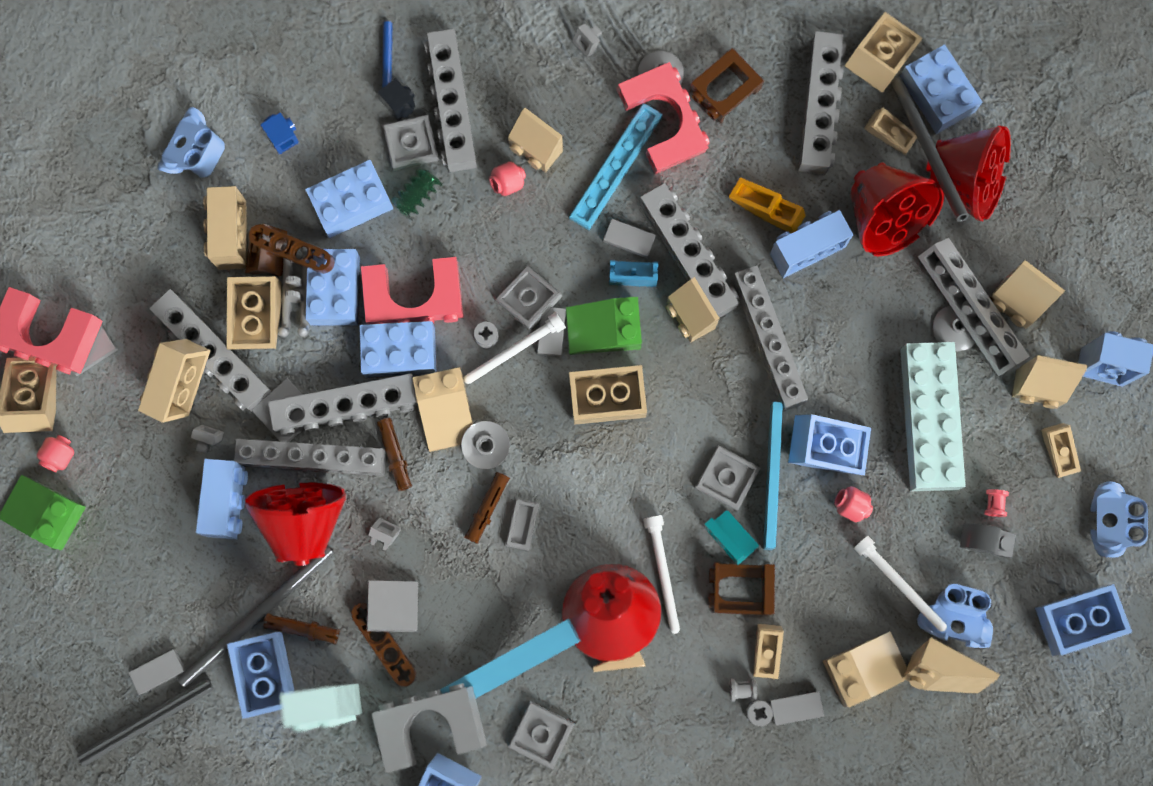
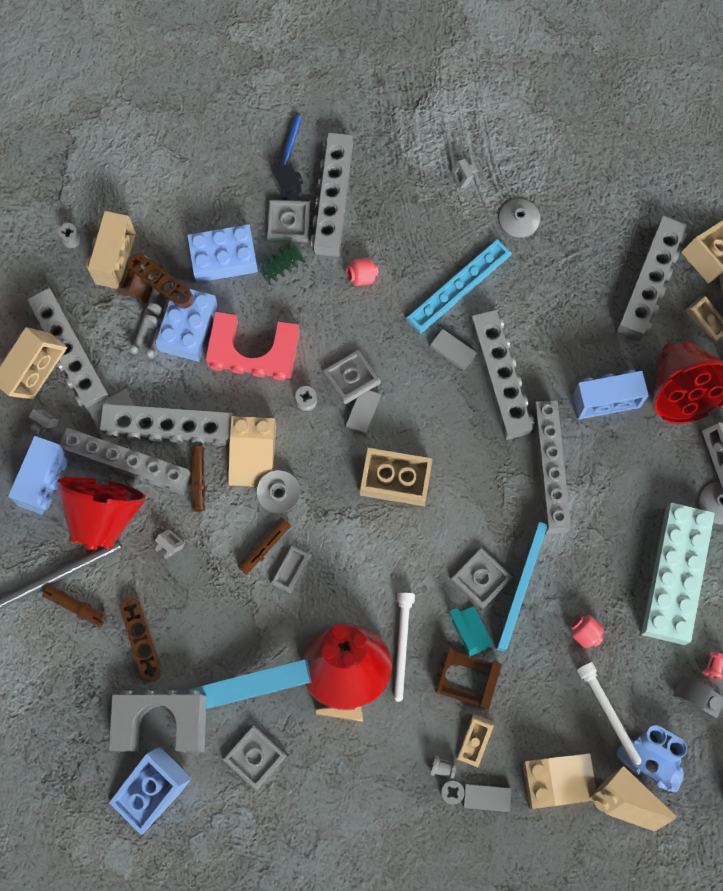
camera: 15 degrees right, 5 degrees down
(180, 225) = (64, 232): none -> light grey bush
(200, 150) = (109, 181): light blue piece -> none
(253, 312) = (113, 325): tan slope -> none
(260, 673) = (28, 635): light blue brick -> none
(280, 132) = (181, 183): blue brick -> none
(321, 707) = (69, 671): light aqua brick -> none
(392, 606) = (157, 608): light grey tile -> none
(398, 349) = (226, 389): light blue brick -> none
(535, 141) = (395, 246): tan slope -> none
(552, 325) = (365, 404): white piece -> none
(604, 326) = (410, 418): bright green slope -> none
(633, 273) = (448, 380): dark azure hinge -> none
(664, 85) = (518, 227): coral arch -> none
(692, 310) = (490, 424): tan slope -> none
(719, 109) = (595, 246): reddish brown panel -> none
(768, 205) = (581, 352): light orange slope -> none
(829, 444) = (579, 573): light blue slope -> none

